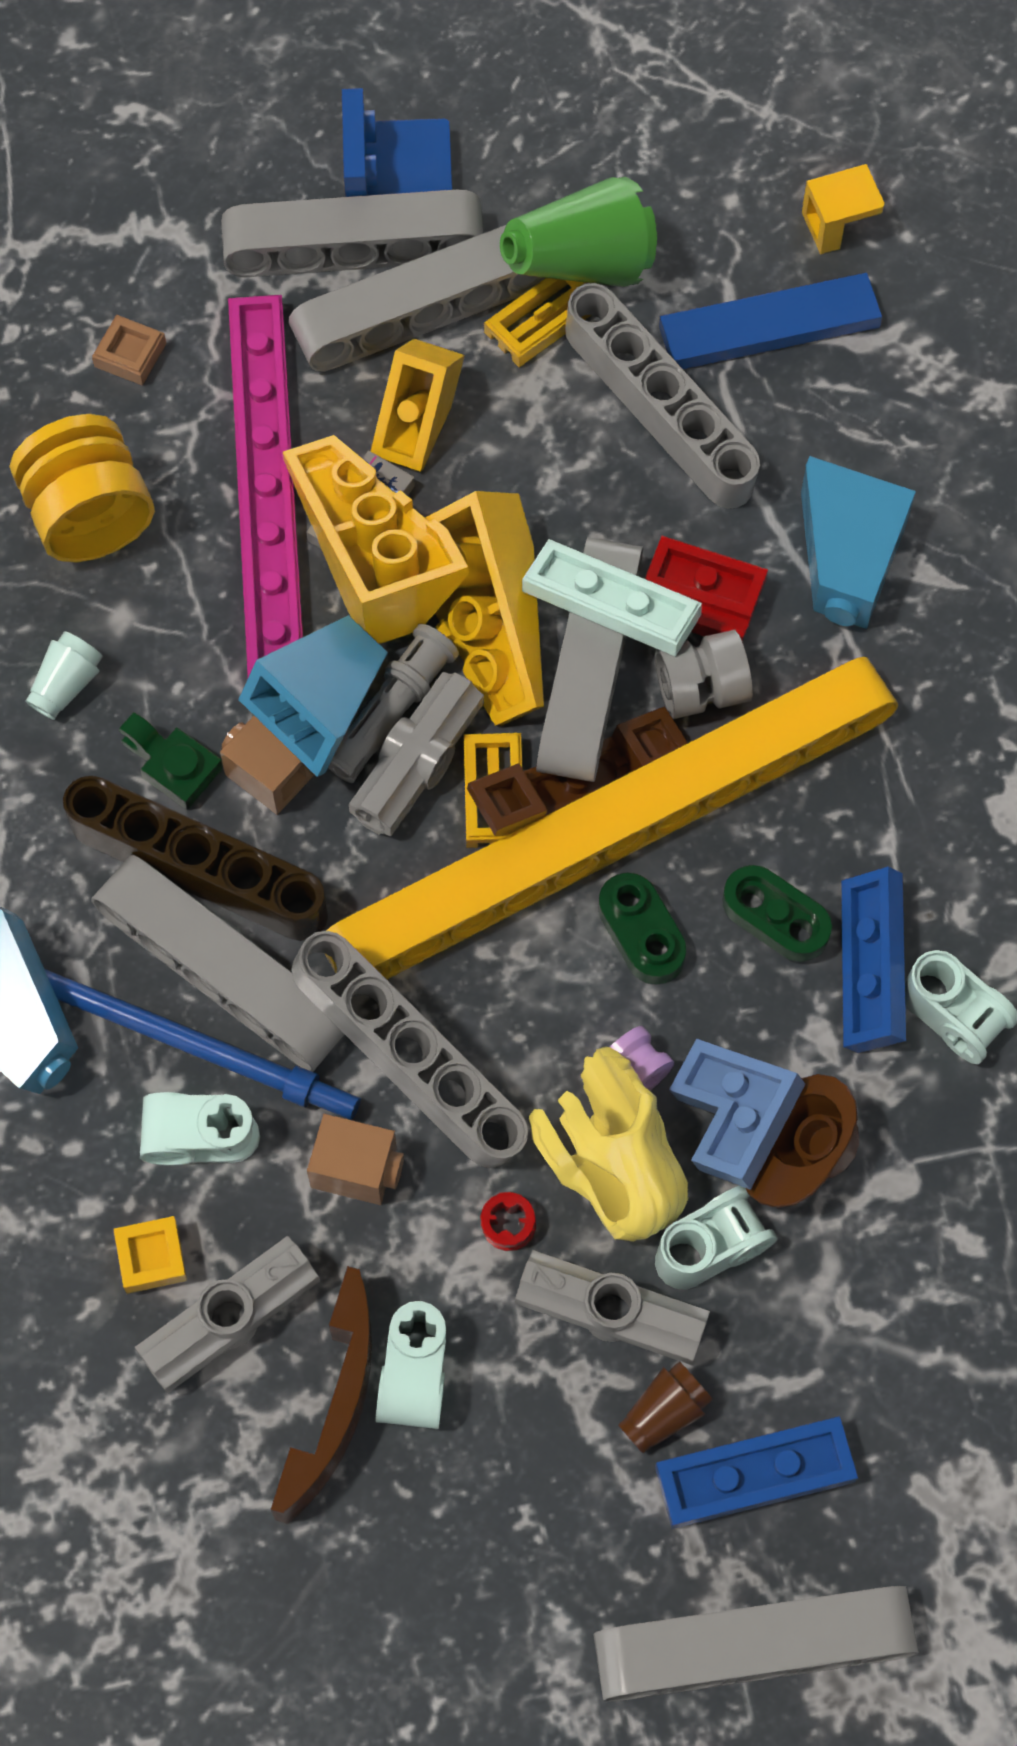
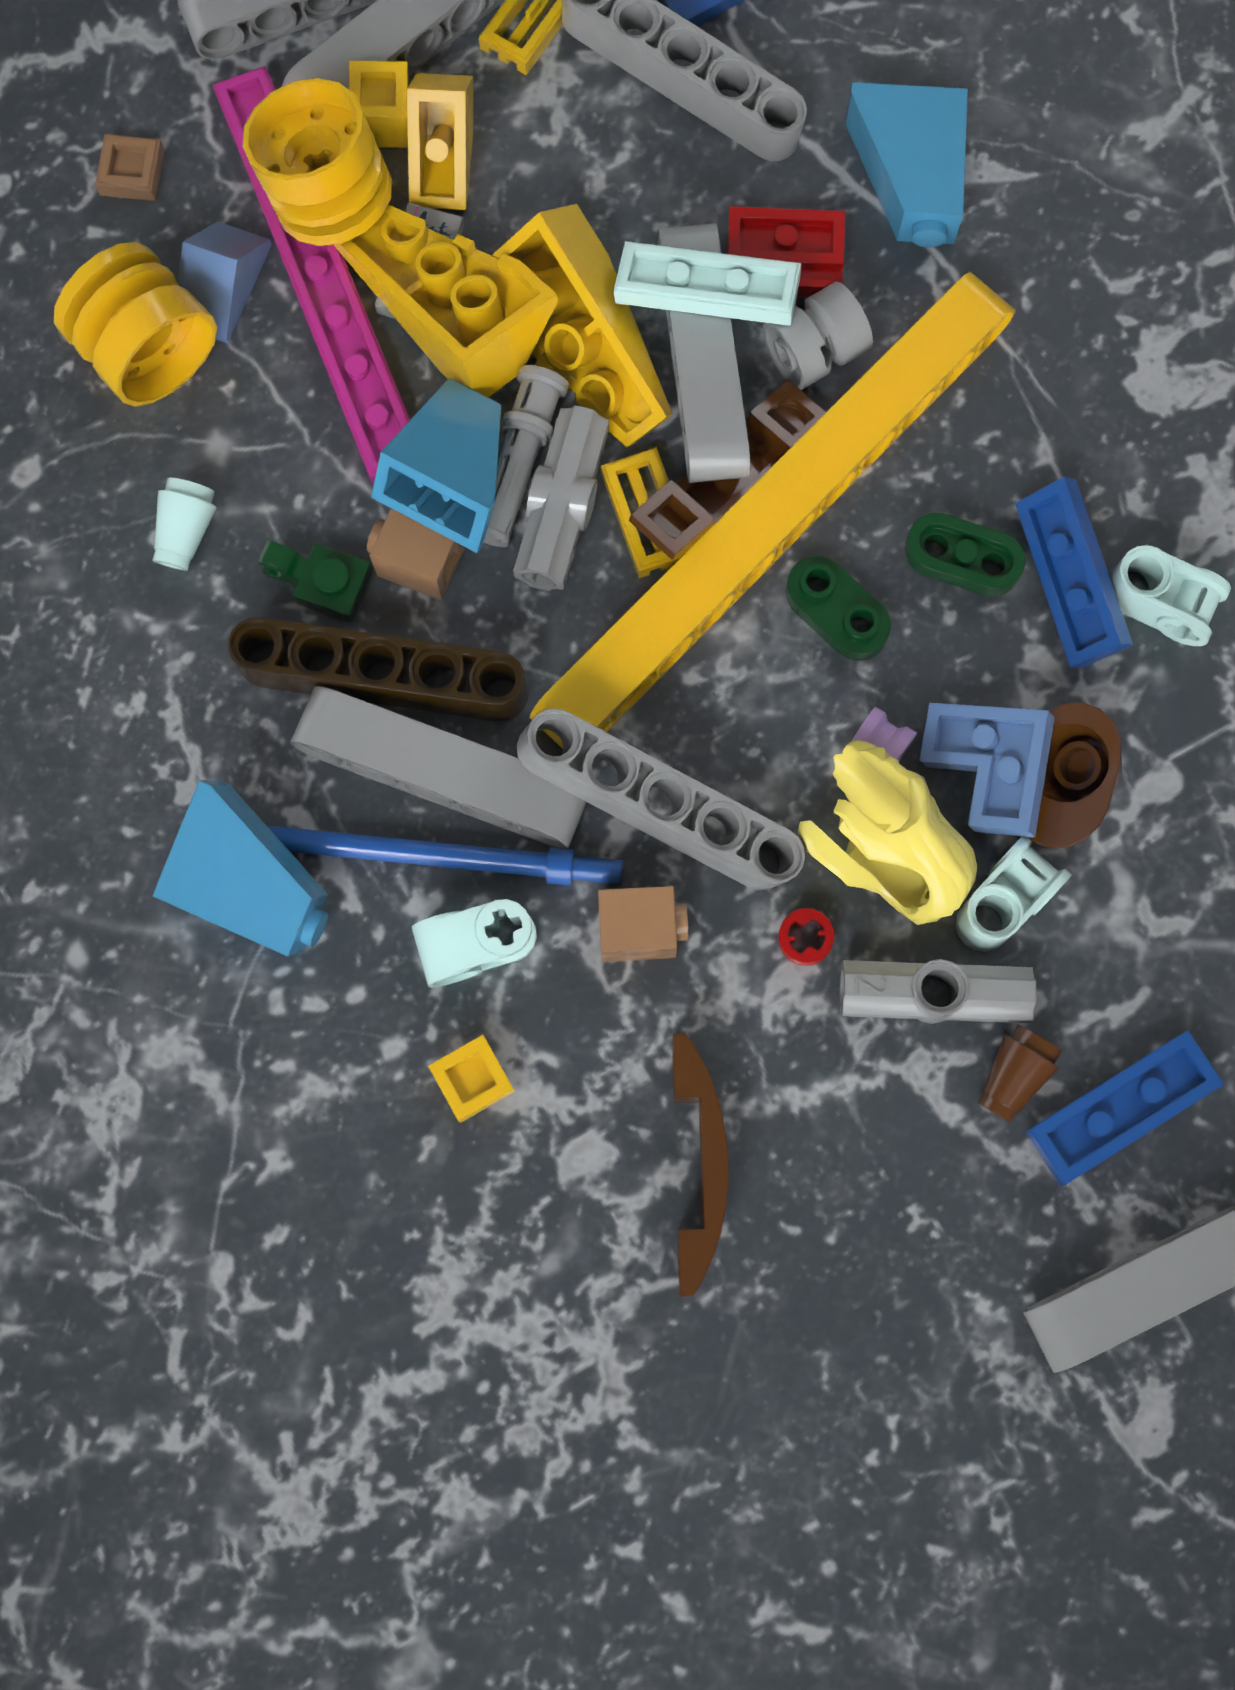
camera: 15 degrees left, 10 degrees up
(177, 463) = (221, 271): none -> medium blue slope
(195, 1341) = (593, 1079): light grey piece -> none
(293, 392) = (318, 161): none -> yellow wheel
(368, 355) = (383, 98): none -> yellow panel
(412, 1376) = (769, 1124): light aqua piece -> none

